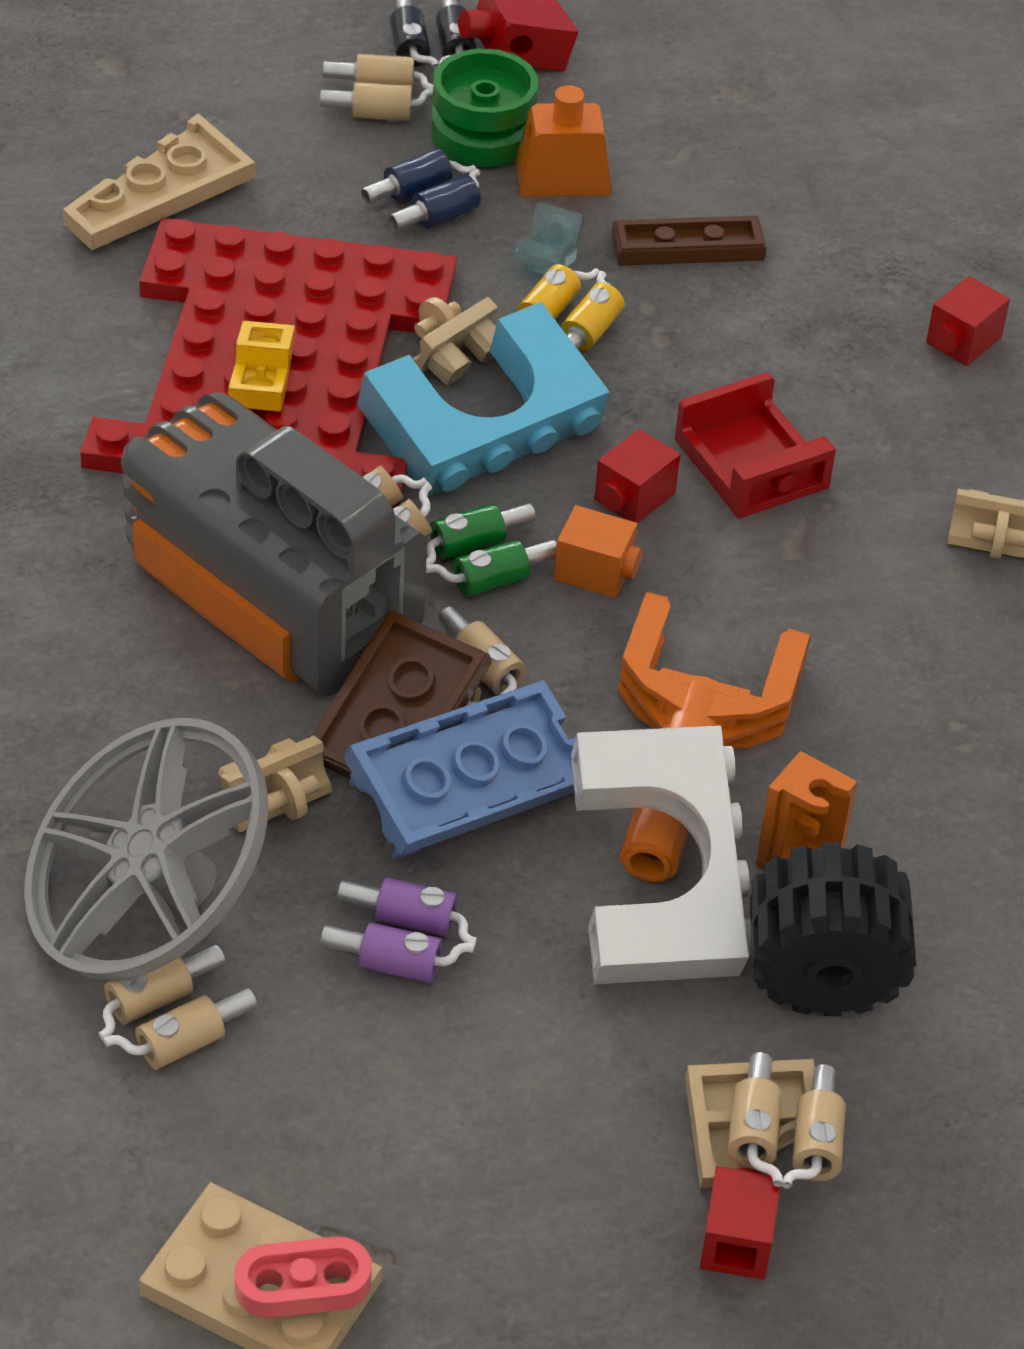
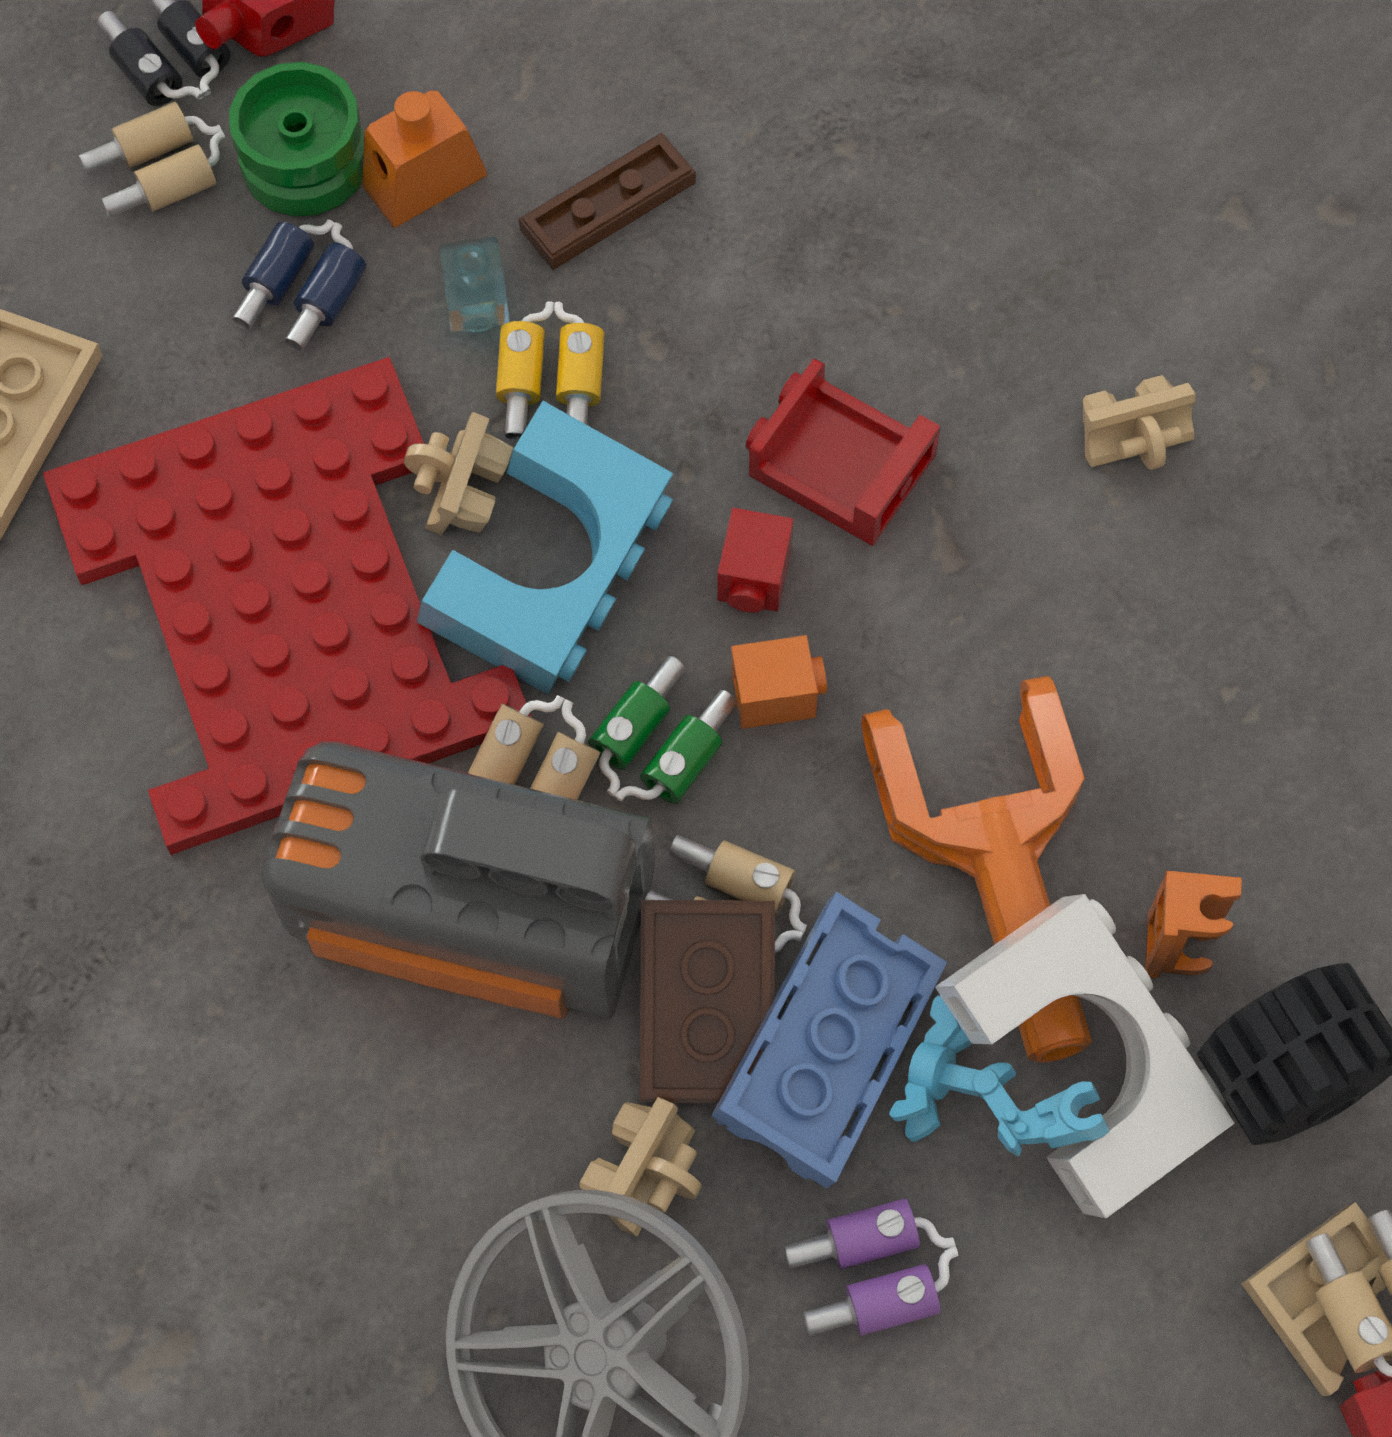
camera: 25 degrees left, 20 degrees up
(262, 365) = (293, 633): yellow slope -> none
(543, 830) = (935, 1073): none -> medium azure piece
(967, 320) = (954, 168): red brick -> none

